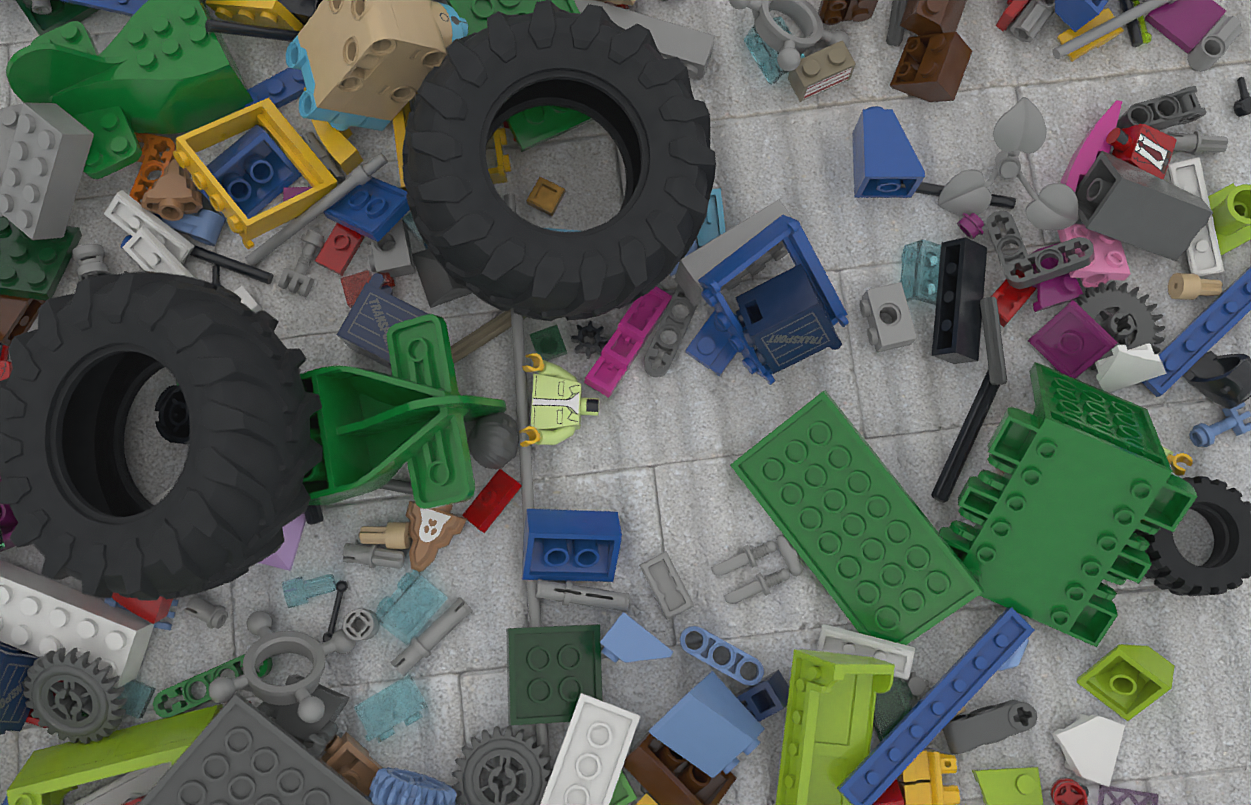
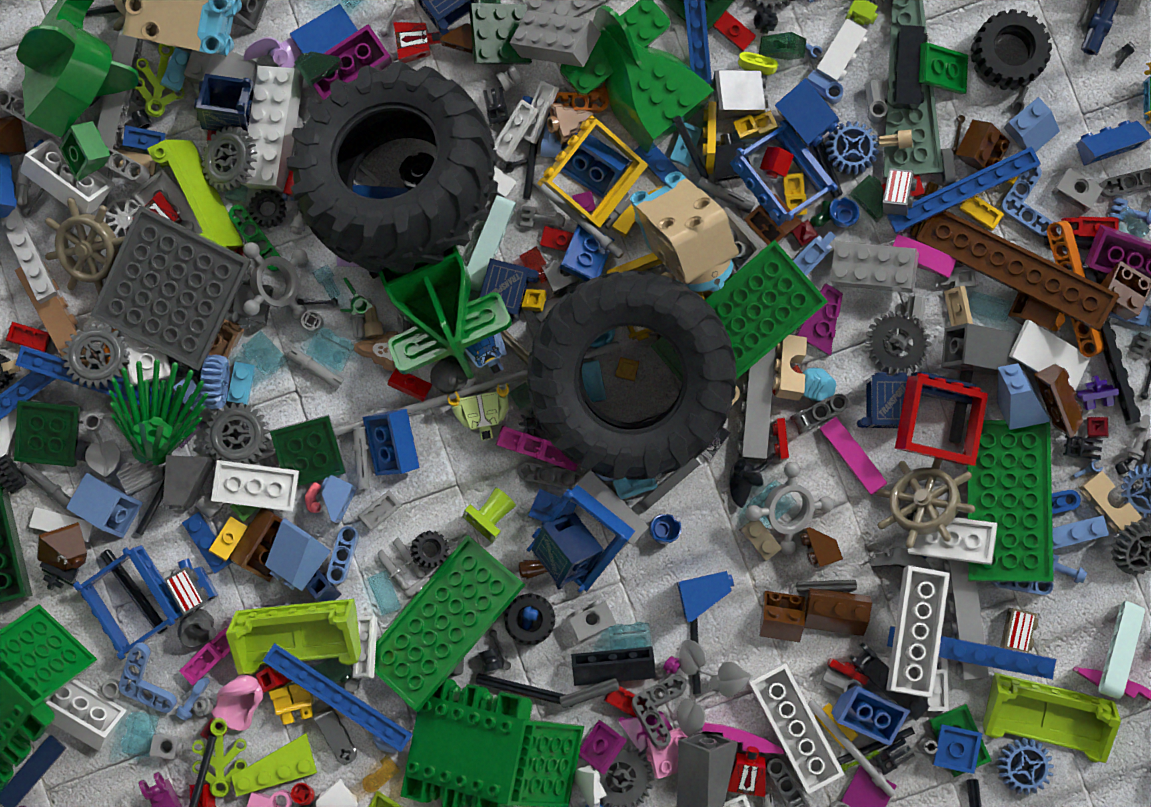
camera: 75 degrees right, 5 degrees up
(155, 650) = (278, 214): none -> black tyre
(258, 52) = (680, 153): none -> medium azure plate
(312, 337) = (490, 240): none -> light aqua beam
(351, 545) = (358, 303): none -> green plant
(417, 294) = (534, 300): none -> yellow plate
(426, 755) = (241, 383): none -> medium azure plate
(475, 375) = (488, 353): none -> torso
(623, 685) = (310, 498): none -> coral arm
(689, 15) = (779, 431): none -> red plate
(713, 430) = (489, 514): none -> lime plant
(730, 74) = (745, 476): none -> black piece
(730, 190) = (671, 482): none -> dark grey beam
(744, 507) = (440, 543): none -> black tyre
(782, 185) = (665, 529): none -> blue hair
(788, 606) = (384, 592): none -> clear light blue tile
(797, 385) = (531, 568): none -> reddish brown cone
(867, 402) = (528, 616): none -> blue arm
(887, 385) = (517, 632): none -> black tyre
(917, 472) = (490, 655): none -> black wheel
(925, 452) = (493, 633): none -> dark grey hinge
(1060, 670) = (376, 780): none -> clear yellow leg
(1093, 76) = (796, 728): none -> white brick

